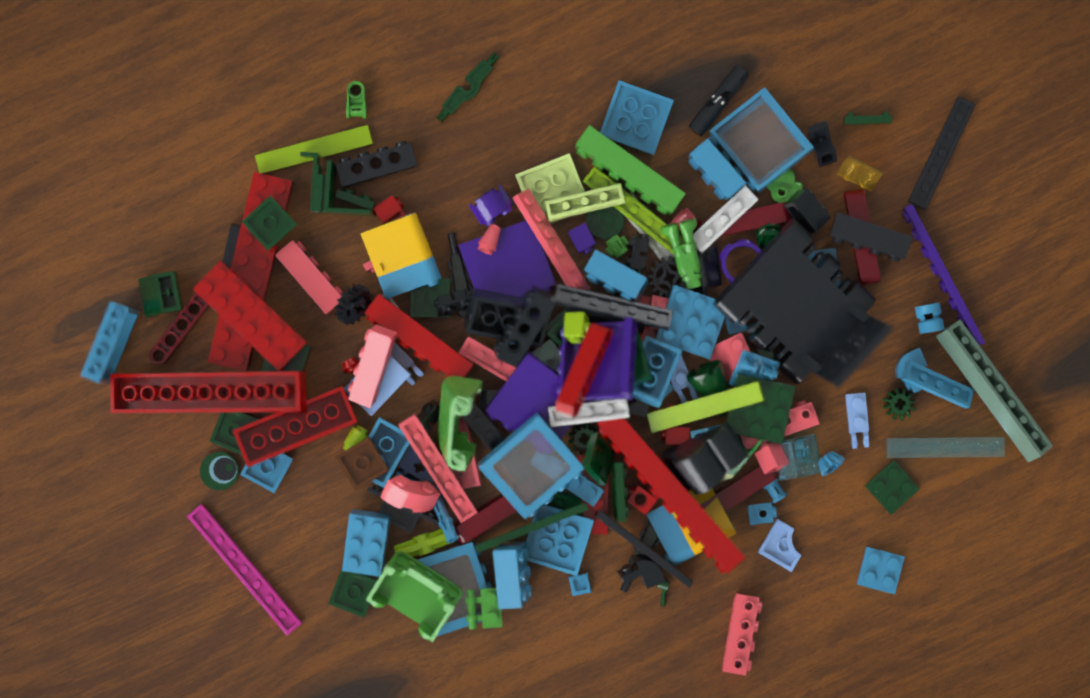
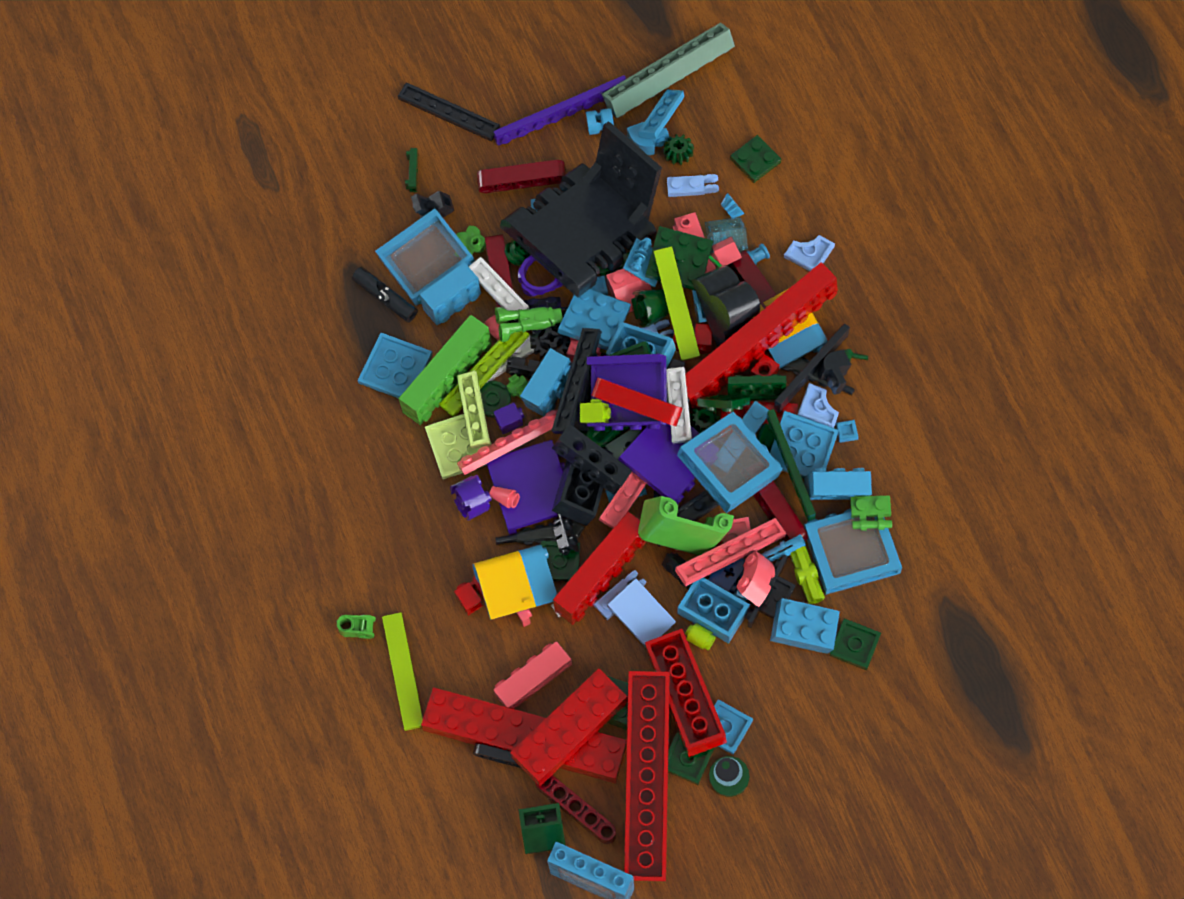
camera: 85 degrees left, 20 degrees down
(244, 569) = (831, 754): dark pink tile -> none
(269, 223) = (474, 706): dark green plate -> none
(324, 190) = (445, 656): dark green piece -> none
(348, 196) = (459, 622): dark green plate -> none
(349, 365) = (624, 639): red plate -> none
(353, 304) = (562, 631): black gear -> none
(362, 463) = (724, 623): reddish brown tile -> none
(372, 365) = (625, 609): brick -> none
(406, 162) = (433, 636): black brick -> none
(416, 593) = (858, 573): bright green windscreen -> none
(460, 95) = (346, 514): dark green piece -> none
(602, 553) = (816, 407): none -> light blue tile
(740, 634) = (894, 287): coral brick -> none
(754, 509) = (778, 267): dark azure brick -> none
(807, 210) = (489, 219): black brick -> none
(859, 173) = (461, 174): clear yellow hinge -> none
(869, 236) = (521, 163): black brick -> none
(880, 570) = (833, 170): dark azure plate -> none
(945, 447) = (719, 113): clear light blue plate -> none

